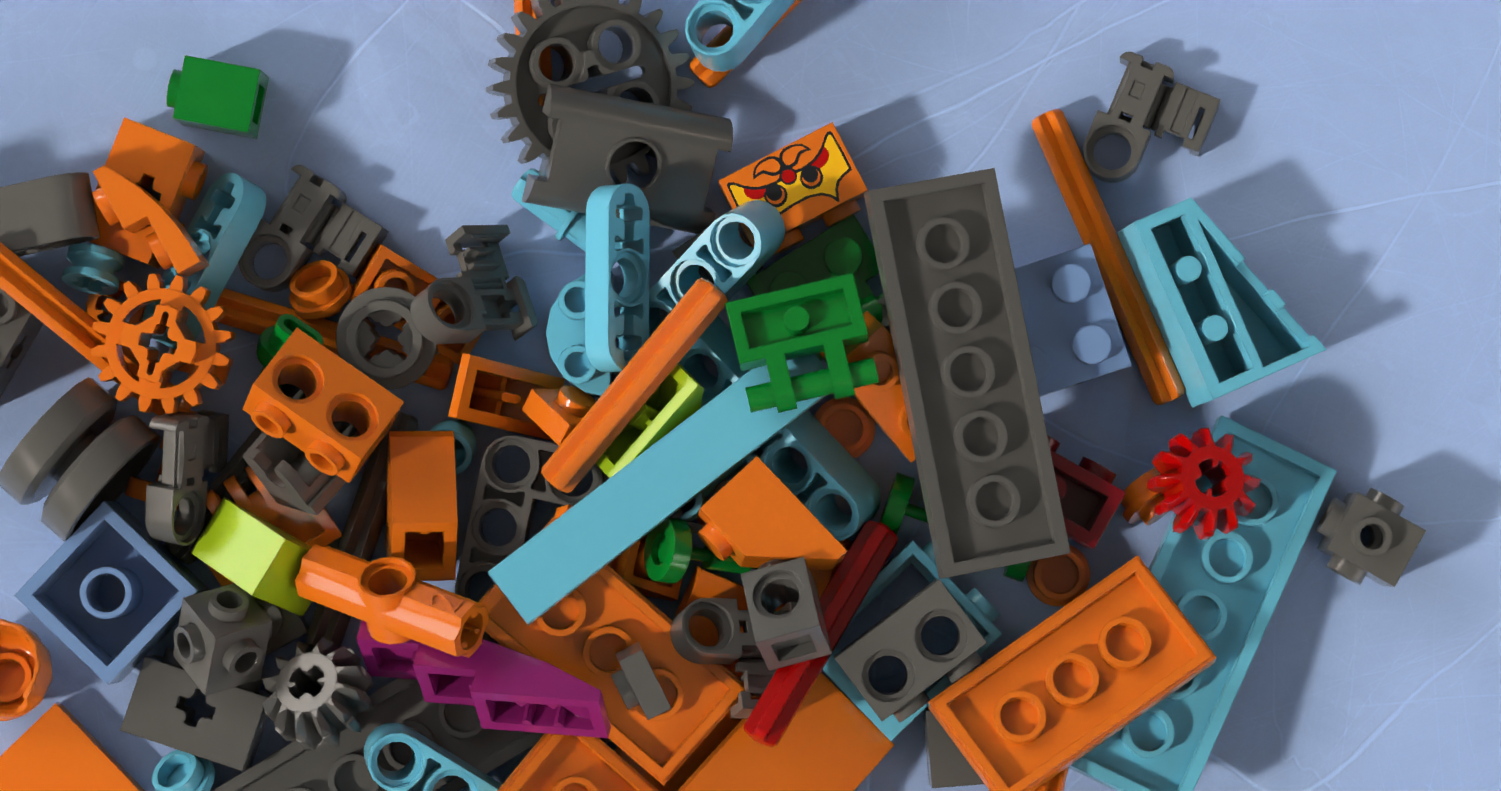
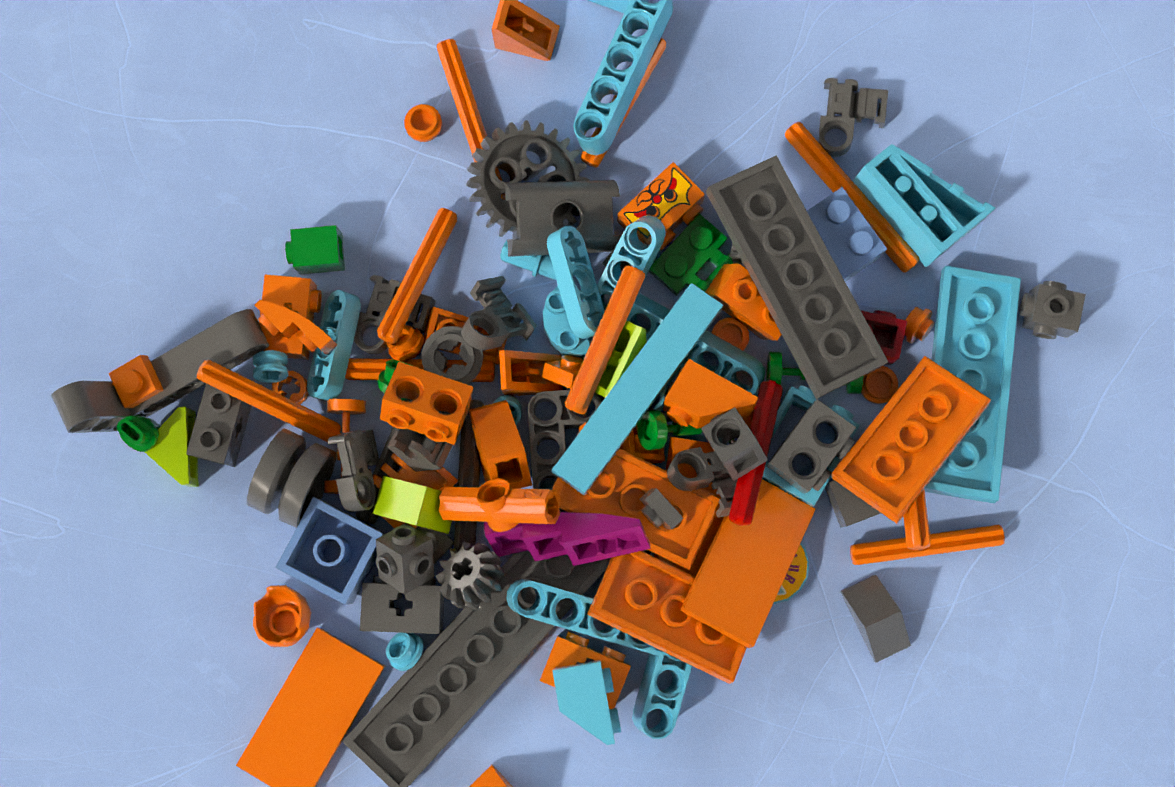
camera: 15 degrees left, 5 degrees down
(153, 373) = (340, 395): orange gear -> none
(369, 186) = (417, 276): none -> orange axle
(799, 324) = (691, 274): green plate -> none
(1218, 504) = (963, 307): red gear -> none

